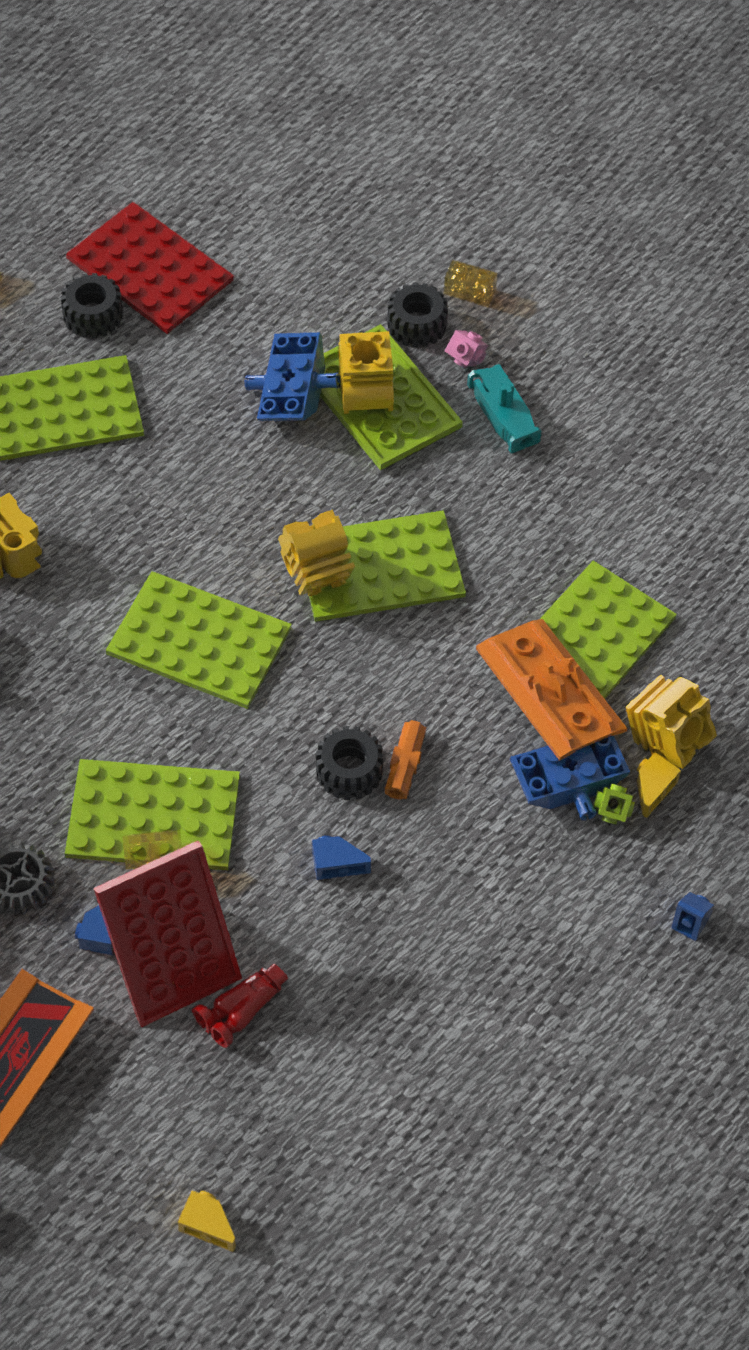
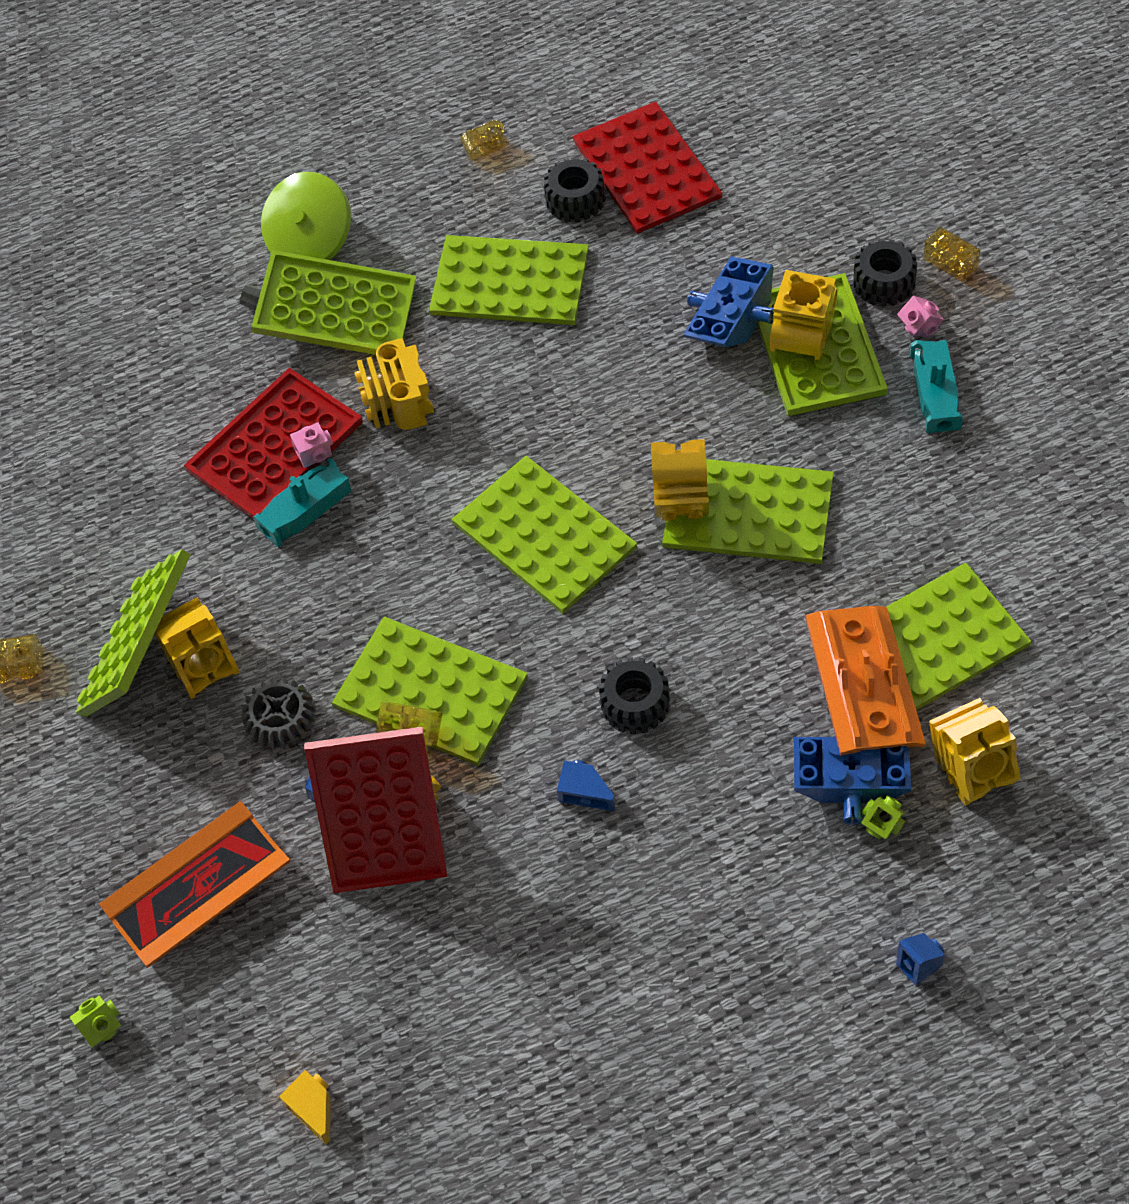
camera: 30 degrees right, 0 degrees up
(239, 1004) = (432, 901): red piece -> none
(405, 760) = (692, 708): orange piece -> none
(655, 781) = (938, 807): yellow slope -> none

